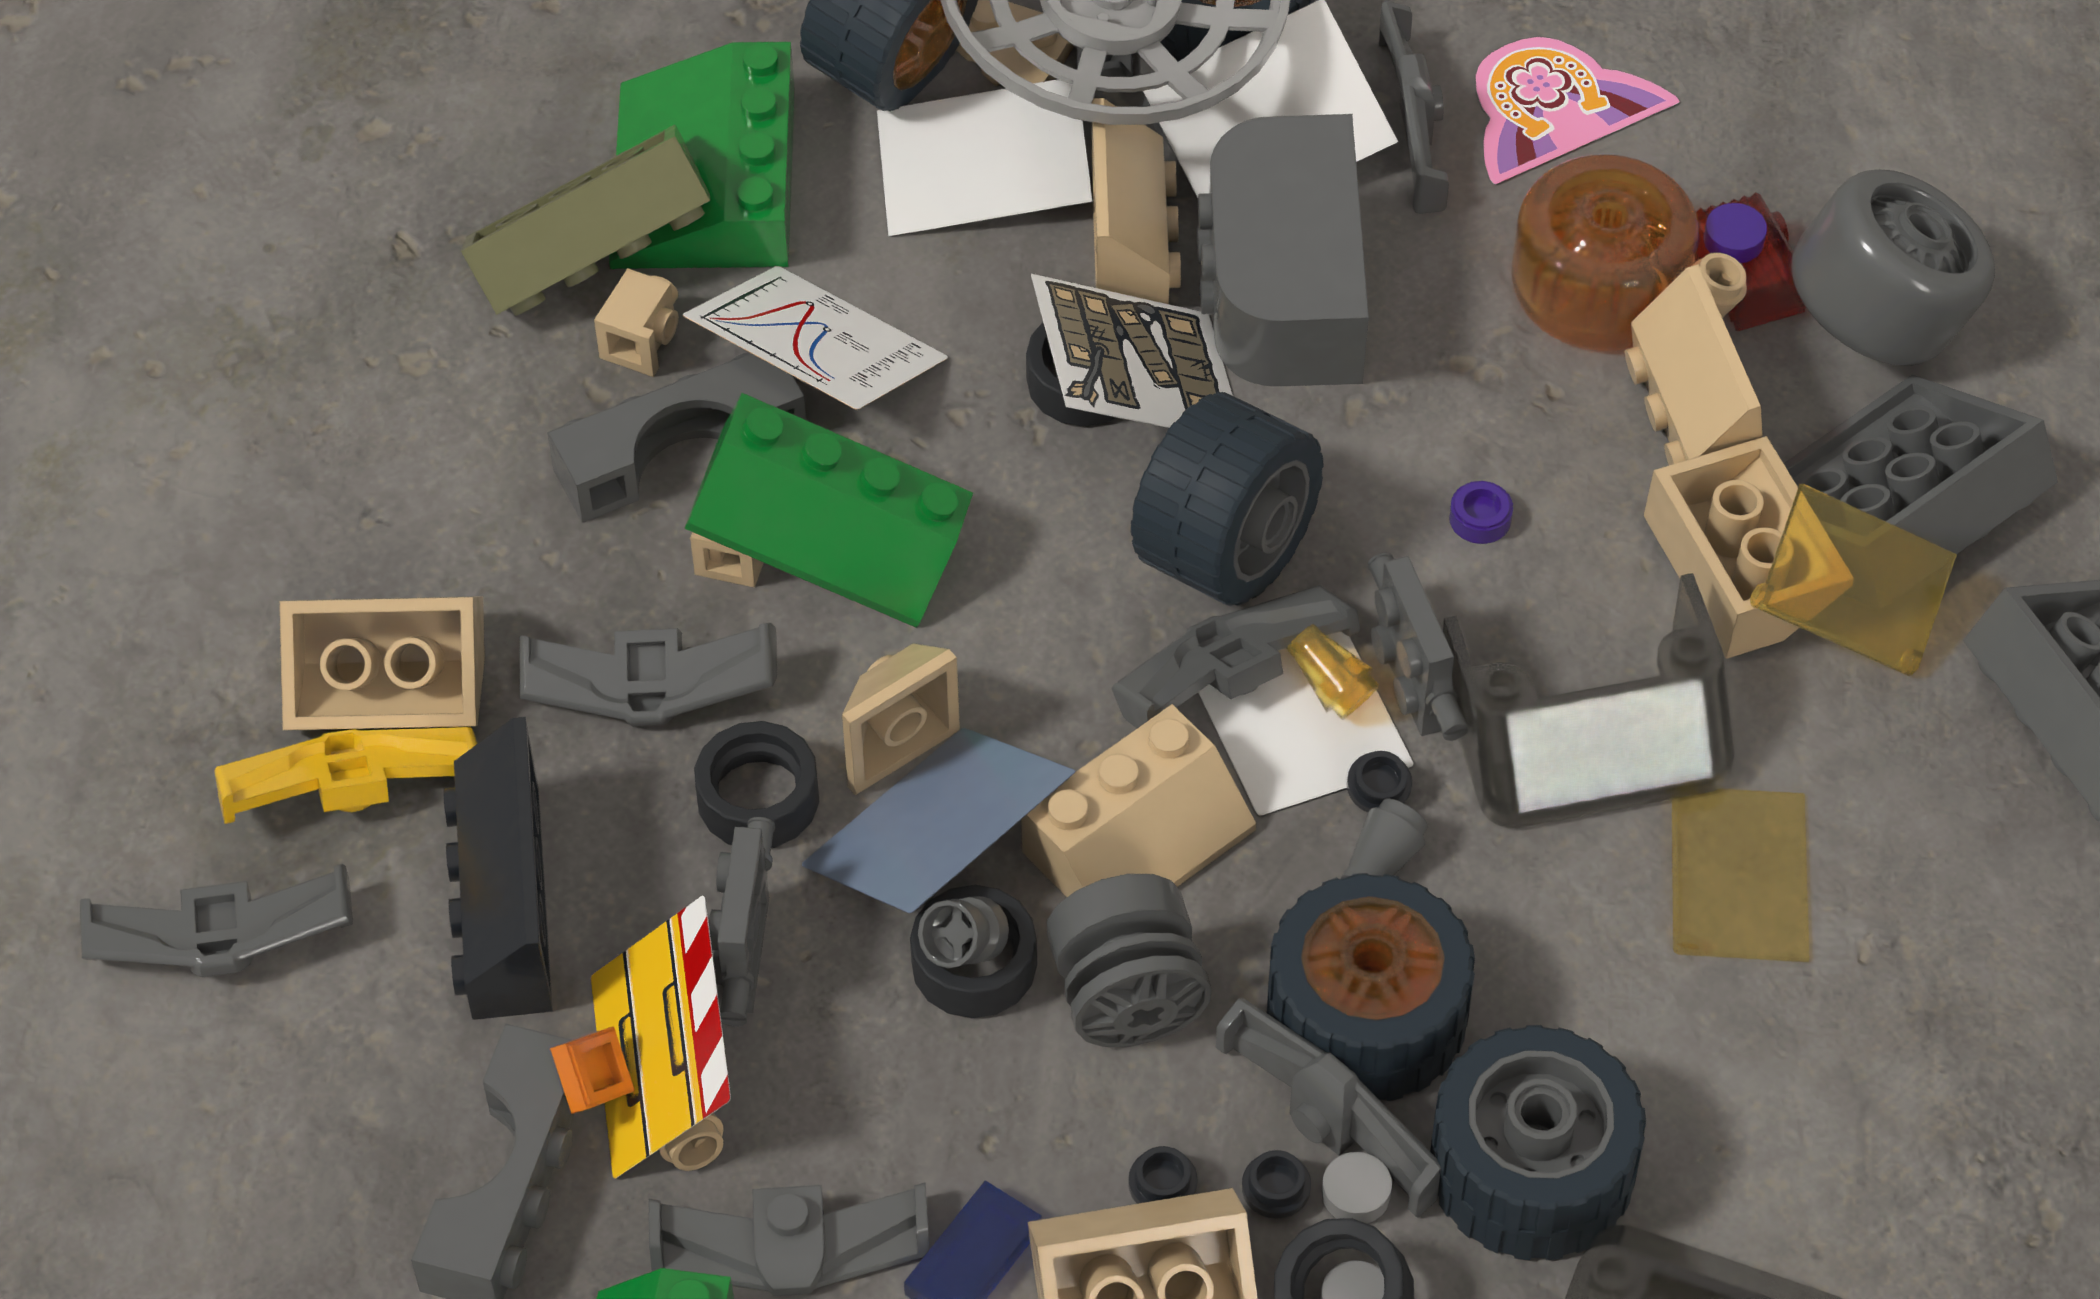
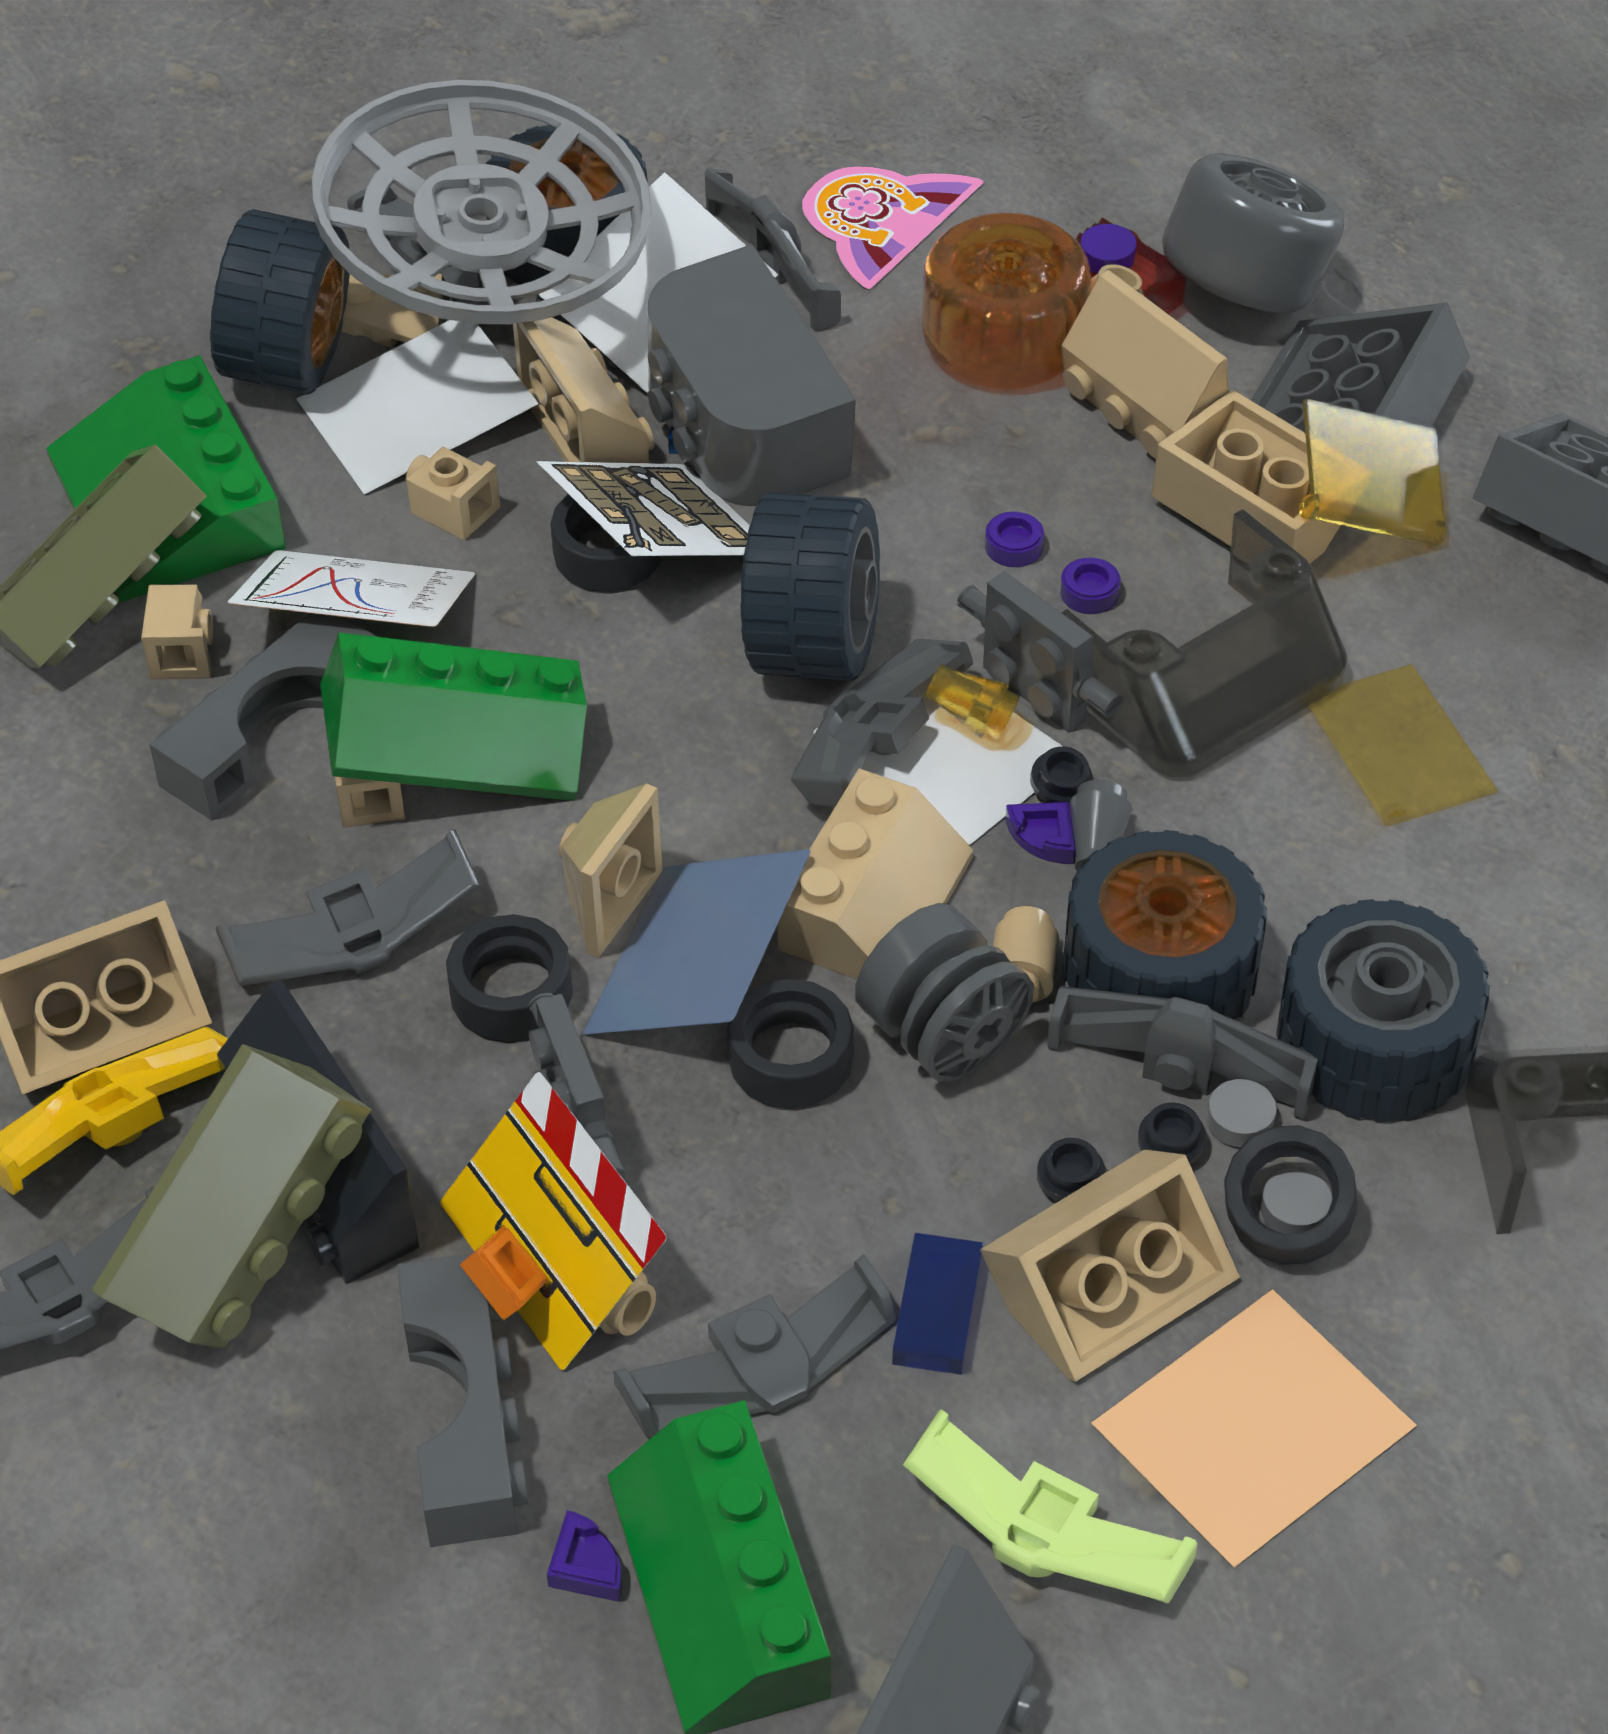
camera: 25 degrees left, 5 degrees down
(383, 907) = (233, 1198): none -> olive slope
(947, 934) = (773, 1027): dark grey wheel -> none
(960, 254) = (445, 484): none -> tan brick
(1238, 949) = (1032, 943): none -> tan brick
(1333, 828) = (1043, 830): none -> dark purple tile
(1527, 590) = (1090, 585): none -> dark purple tile

